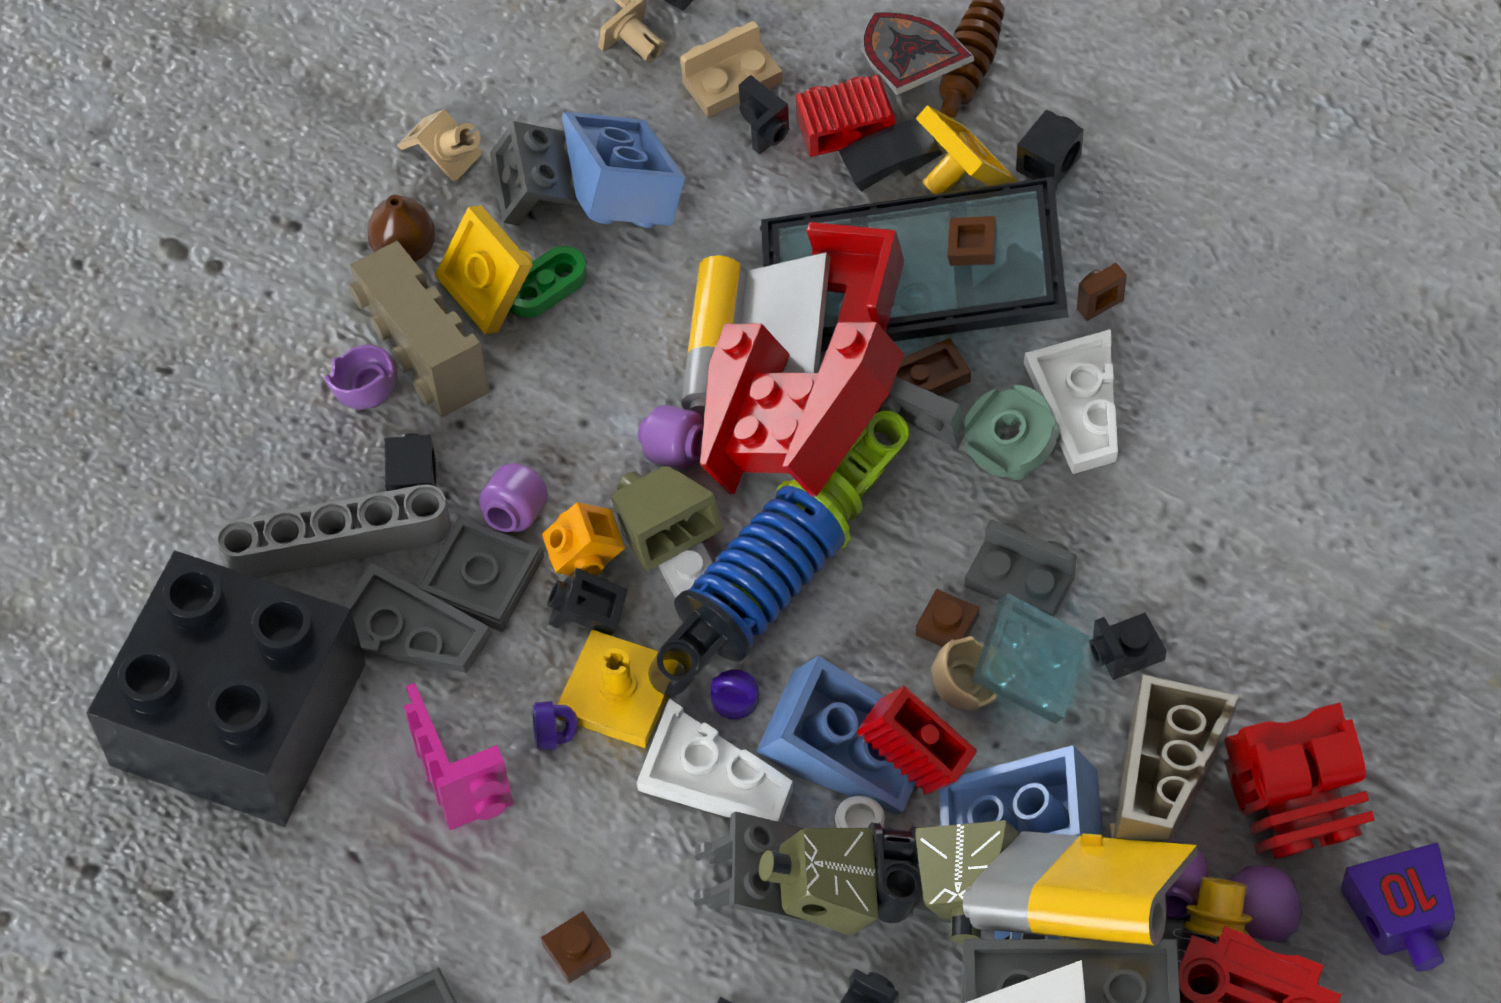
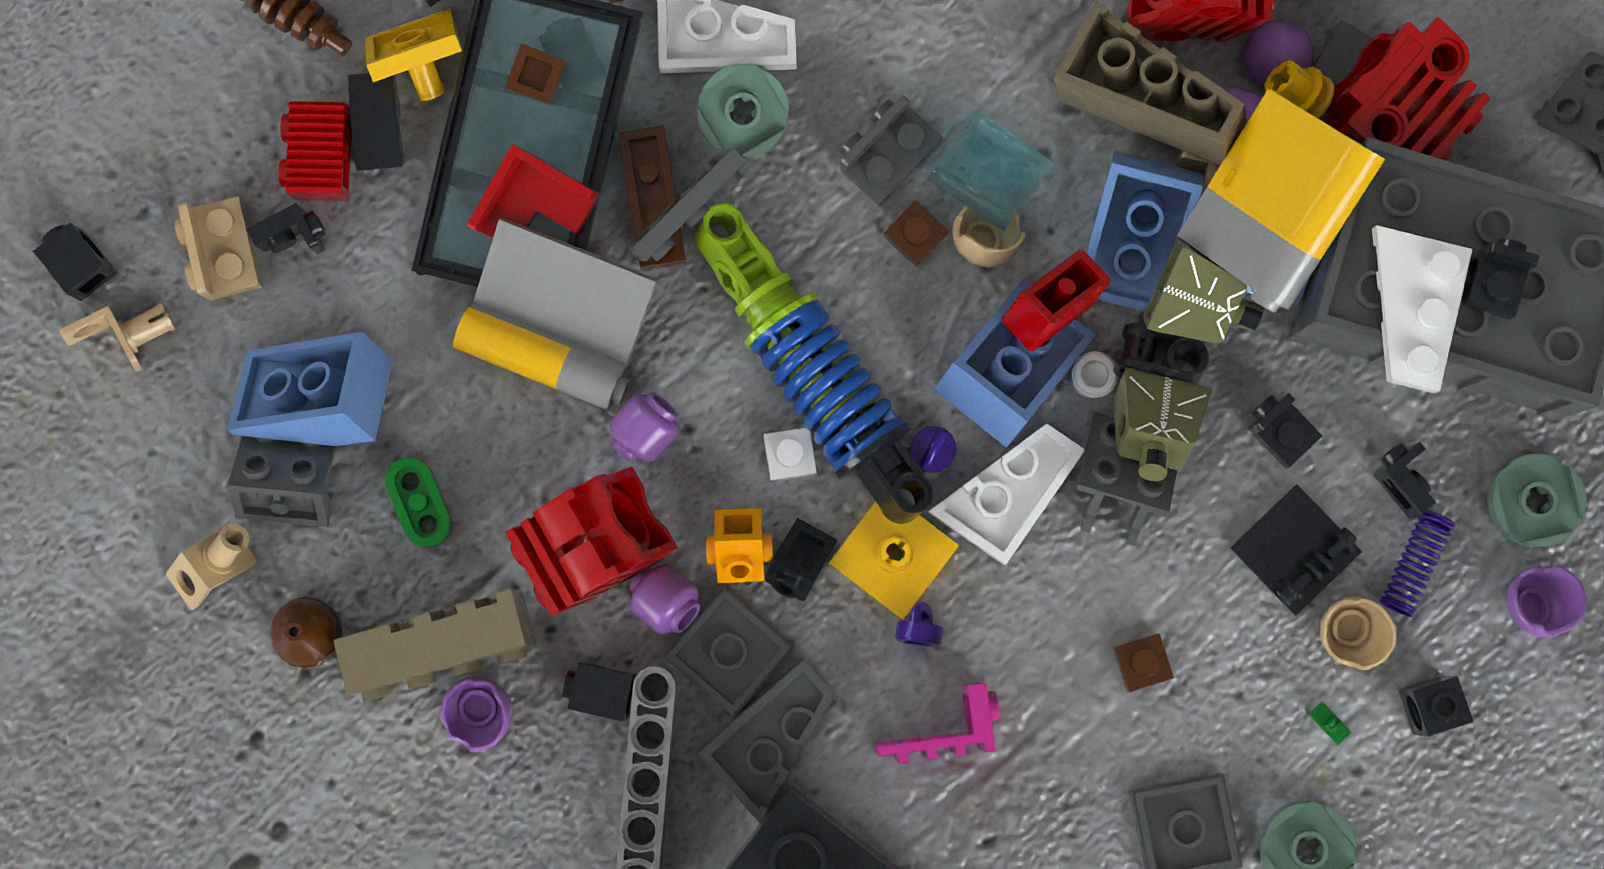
camera: 75 degrees left, 25 degrees up
(483, 269) = (395, 559): yellow tile -> none
(548, 406) = (589, 540): none -> red piece
(664, 514) = (732, 463): olive torso -> none
(791, 420) = (690, 315): red wedge -> none
(910, 49) = (264, 61): shield -> none
(1126, 645) = (992, 81): black bracket -> none

